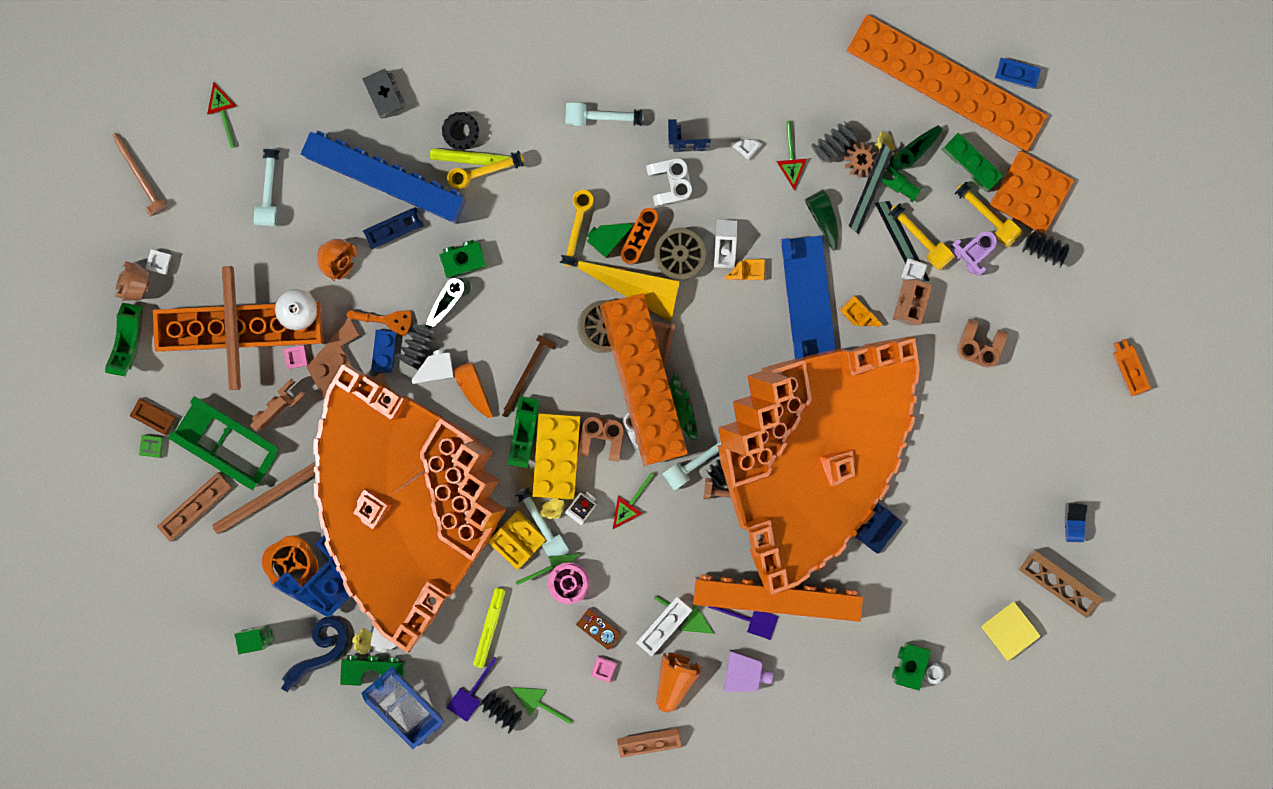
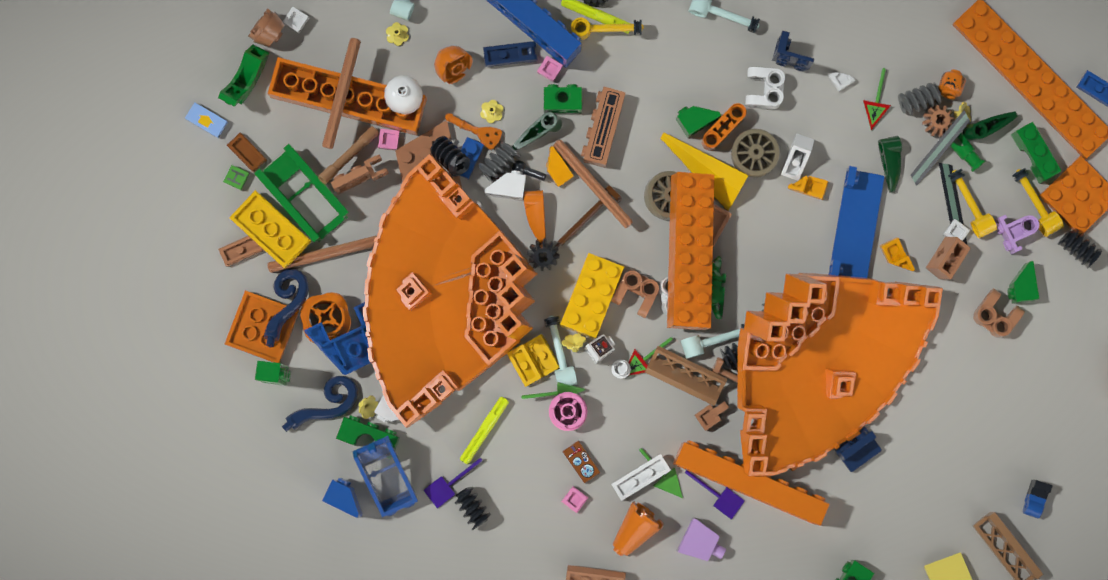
camera: 15 degrees right, 5 degrees down
(100, 396) = (206, 120): none -> light blue tile
(203, 490) = (270, 229): none -> yellow tile
(228, 593) = (250, 325): none -> orange plate
(240, 590) = (275, 325): none -> dark blue plant
(270, 367) = (332, 170): none -> medium nougat piece
(273, 246) = (398, 38): none -> light yellow plant
(364, 357) = (450, 156): none -> black piece
(367, 742) = (343, 497): none -> blue slope
(399, 295) = (491, 116): none -> light yellow plant
(439, 230) = (549, 68): none -> bright pink tile
(442, 343) = (521, 166): none -> black bar
(480, 333) = (557, 168): none -> light orange slope
(493, 435) = (551, 257): none -> black gear
(514, 274) = (604, 127): none -> nougat brick
(521, 338) = (592, 183): none -> nougat axle
(523, 432) = (570, 265): green arch -> none
(530, 699) = (501, 506): bright green piece -> none
(569, 259) = (655, 128): yellow piece -> none
(610, 521) = (621, 369): none -> white plate
(678, 511) = (684, 378): none -> medium nougat fence
(715, 542) = (708, 416): none -> nougat plate
(863, 117) = (952, 84): none -> orange head
(999, 305) = (1024, 285): none -> green slope

